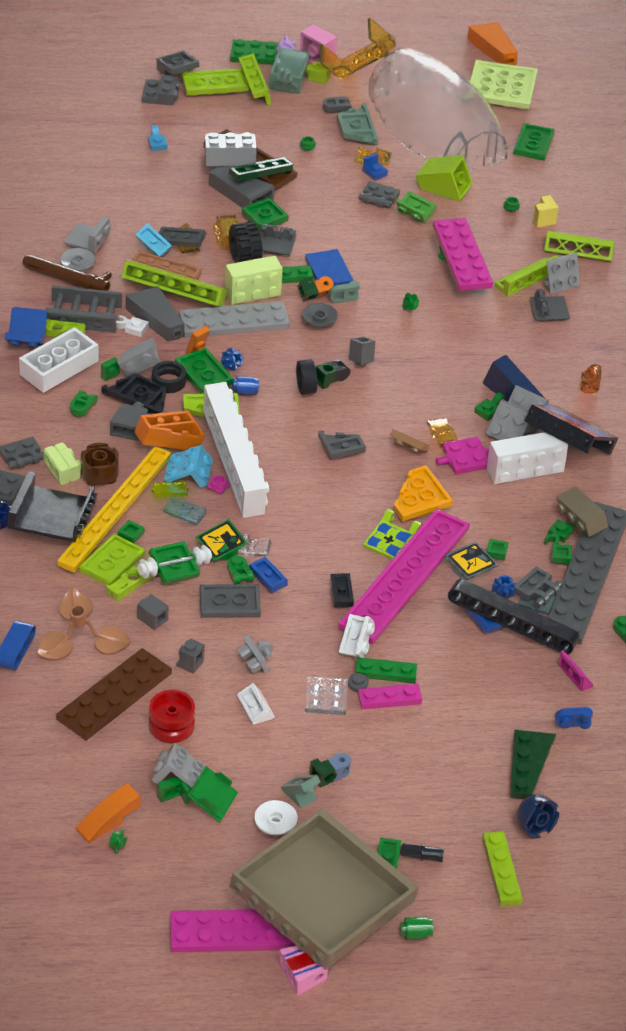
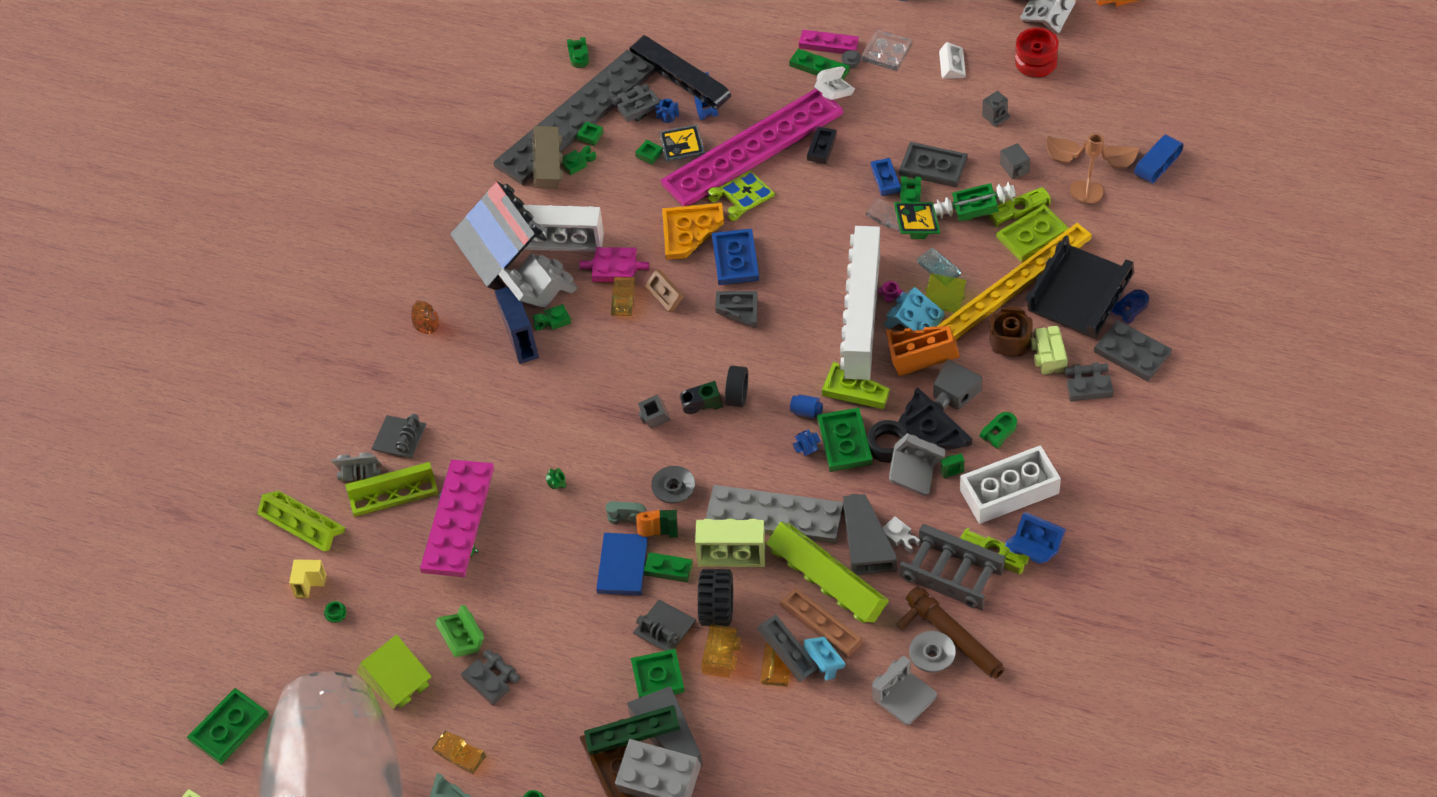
camera: 150 degrees left, 10 degrees up
(113, 694) = (1078, 99): reddish brown plate -> none
(131, 531) = (1004, 254): green plate -> none
(198, 340) = (839, 464): orange plate -> none
(258, 661) = (932, 98): light grey hips -> none
(366, 480) = (735, 256): none -> blue plate
(373, 168) = (470, 726): blue bracket -> none
(574, 672) = (651, 23): dark pink slope -> none

